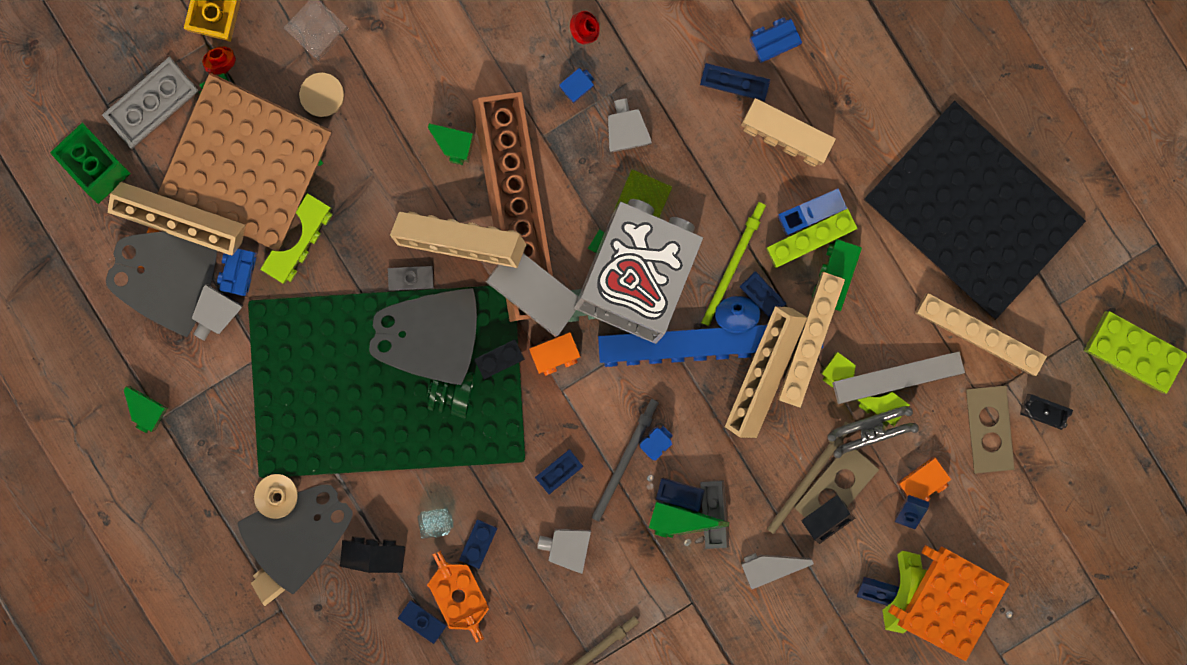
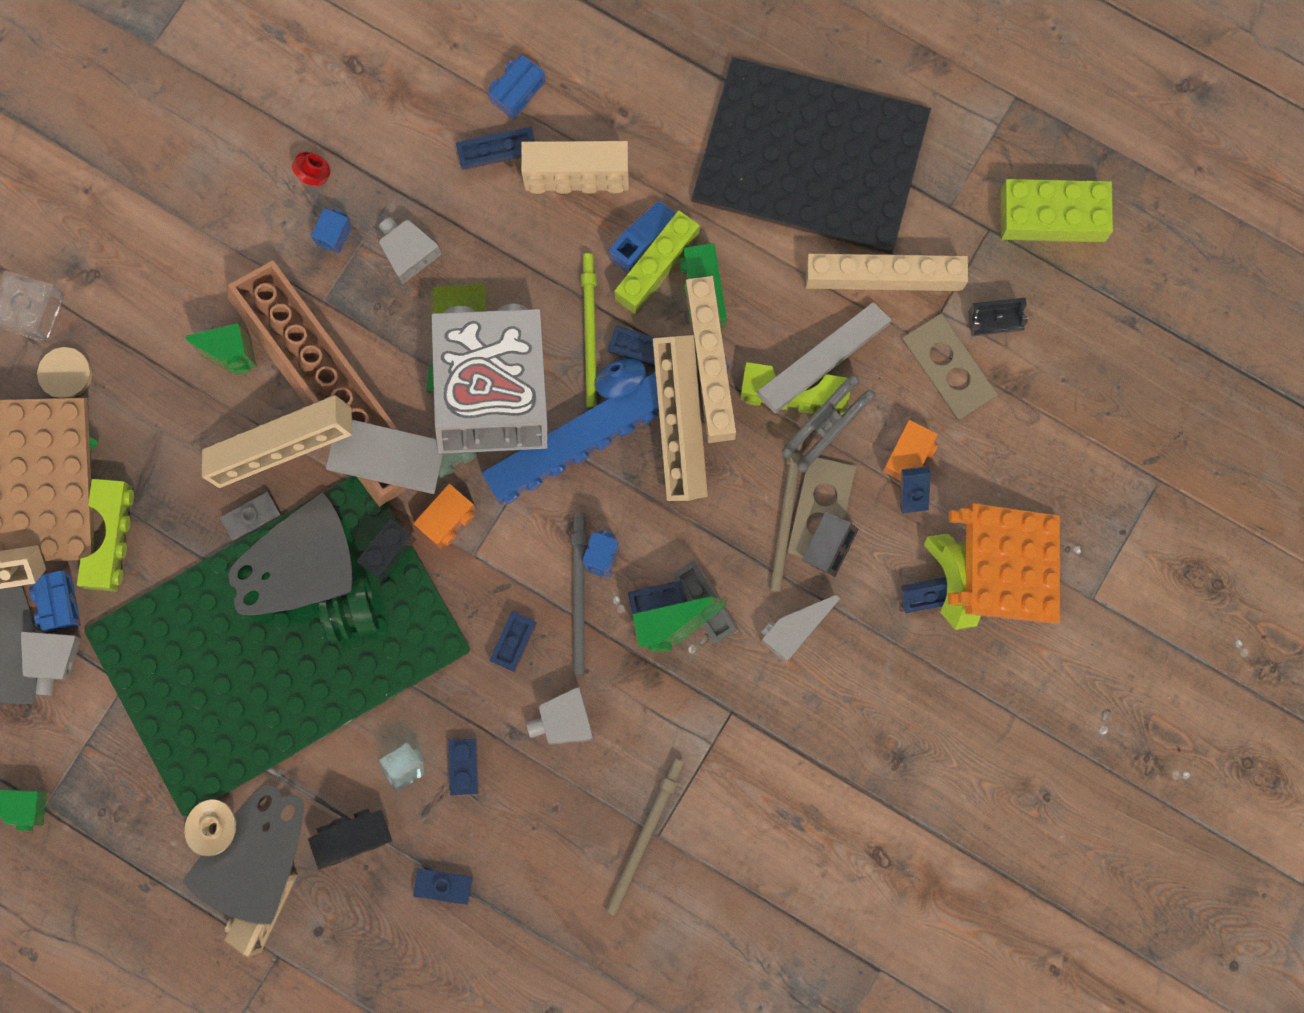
camera: 25 degrees left, 10 degrees down
(461, 614) = (446, 831): orange plate -> none

